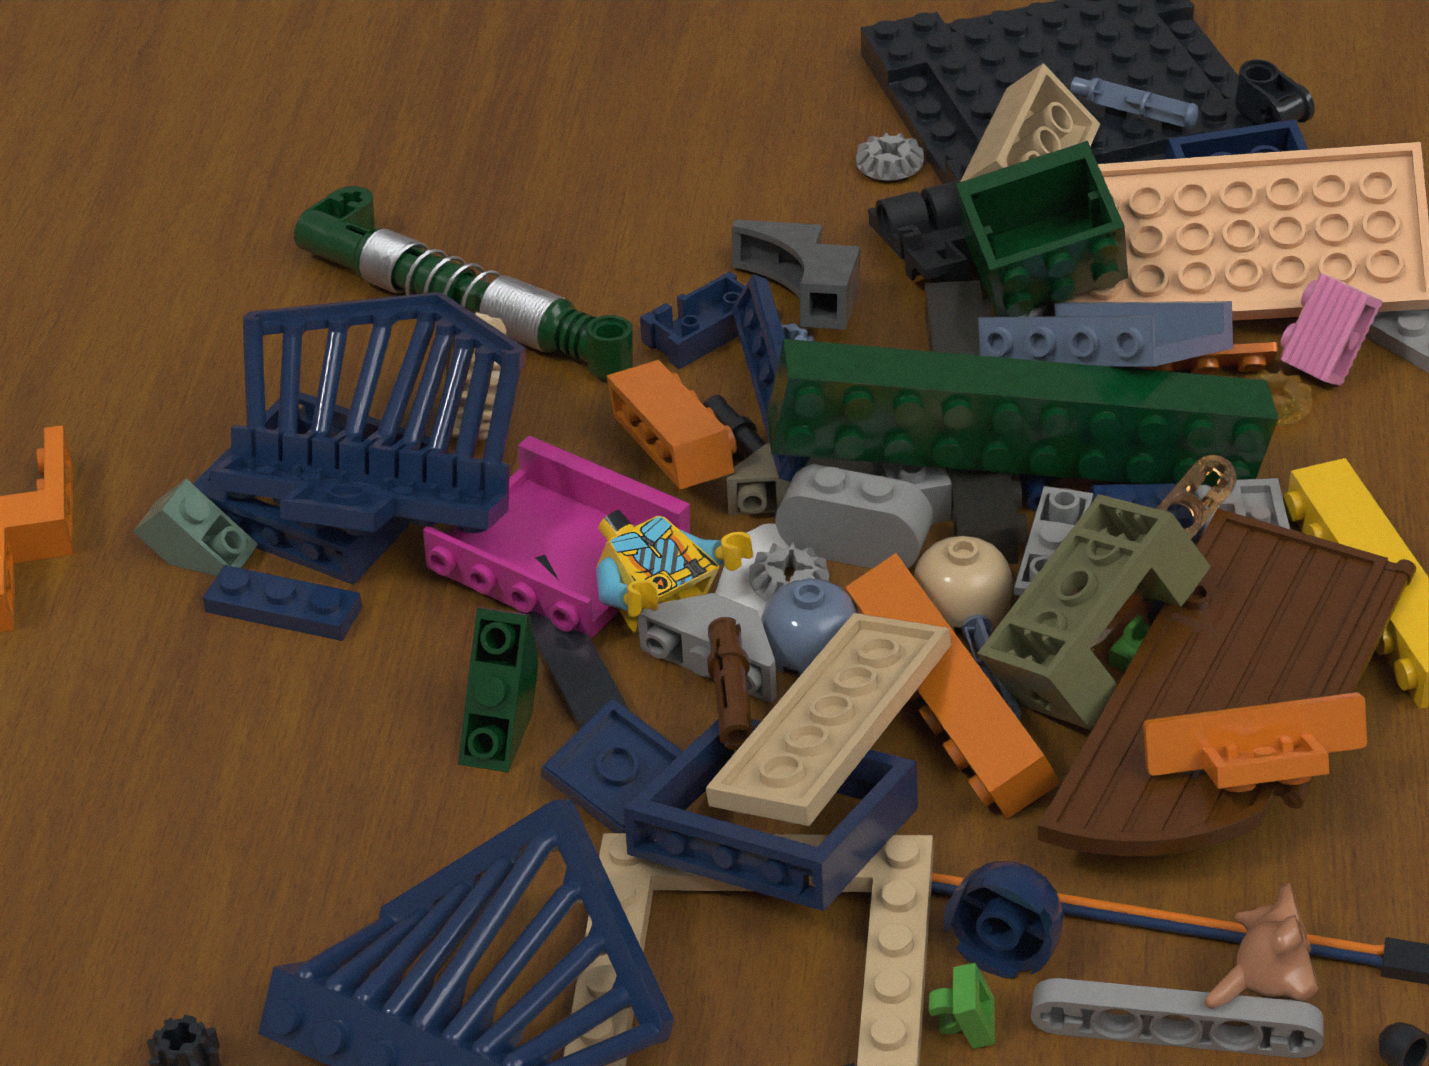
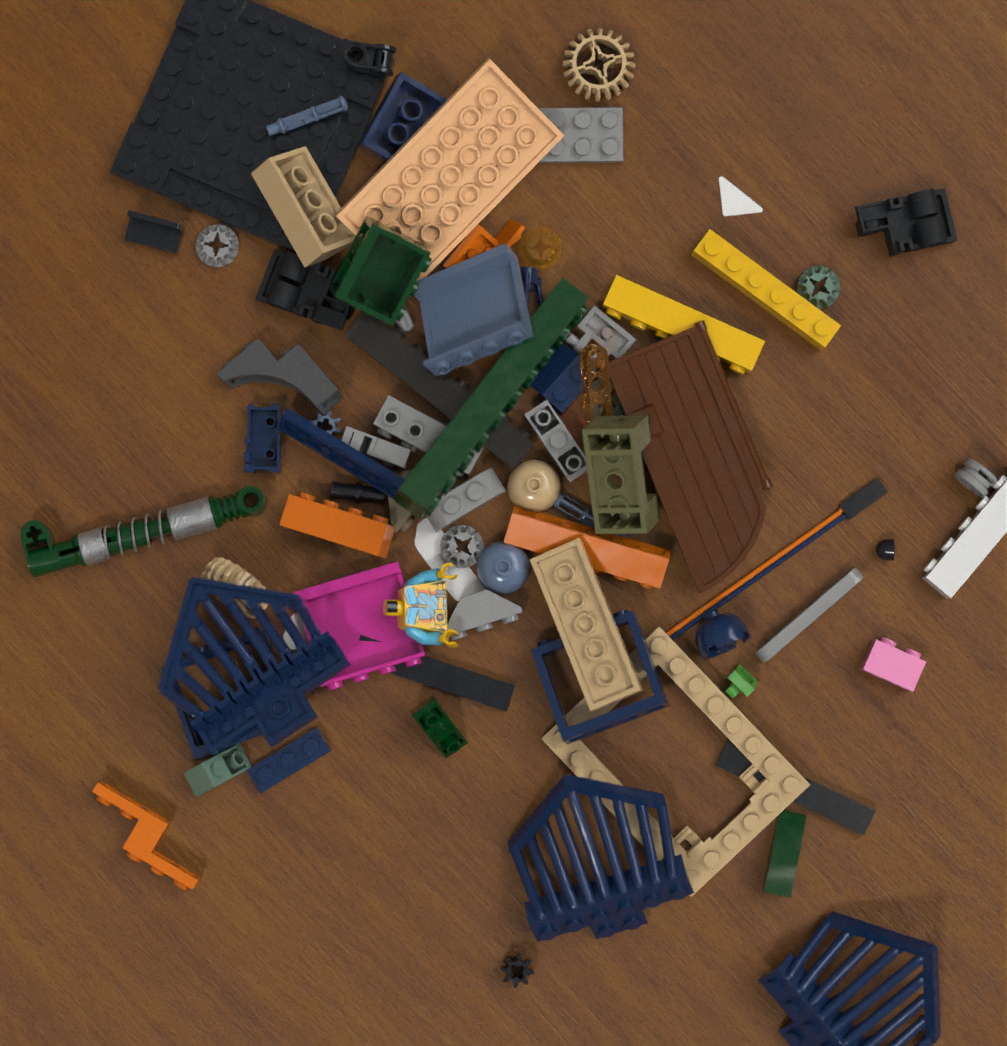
camera: 45 degrees left, 45 degrees up
(609, 763) = (513, 707): dark blue tile -> none
(729, 667) = (519, 636): reddish brown pin -> none
(842, 103) = (154, 232): none -> black panel
(1257, 742) = (747, 487): orange bracket -> none
(1271, 956) = (825, 566): nougat animal -> none
(1329, 329) = (537, 196): bright pink brick -> none

